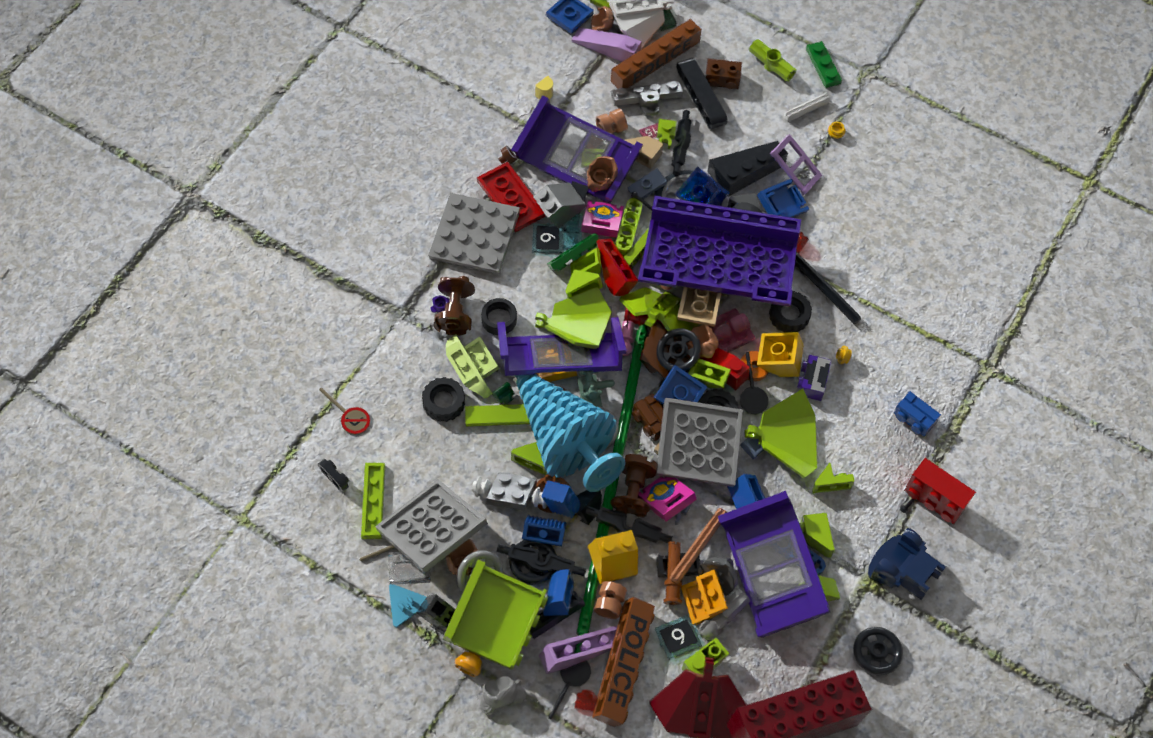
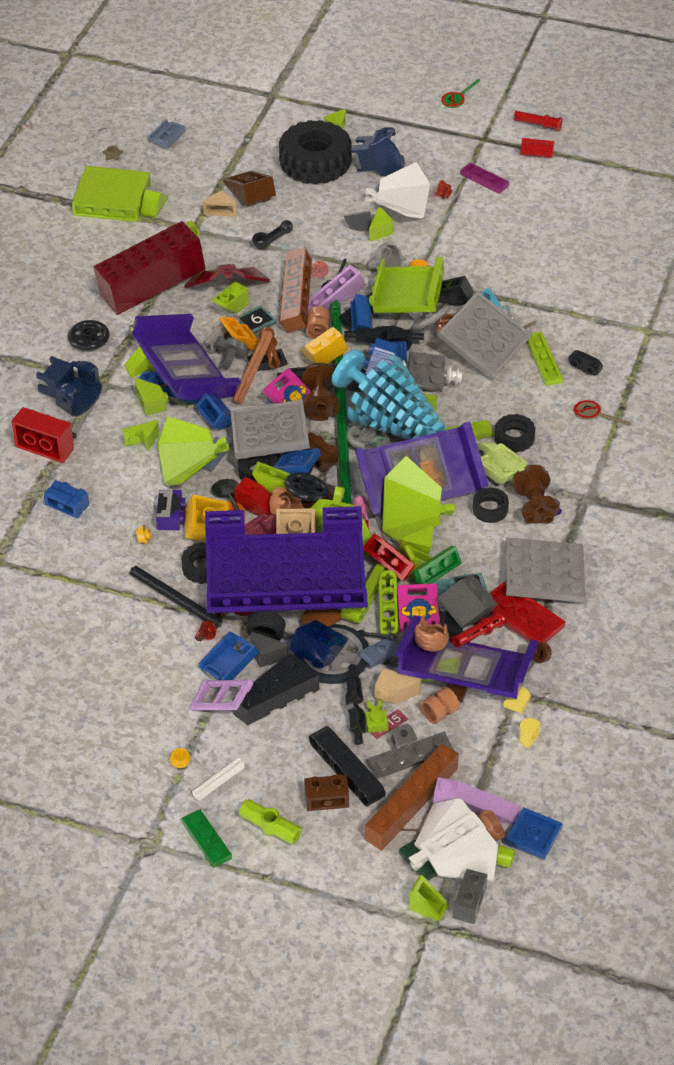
camera: 170 degrees right, 15 degrees down
(567, 177) = (484, 626): none -> red pin

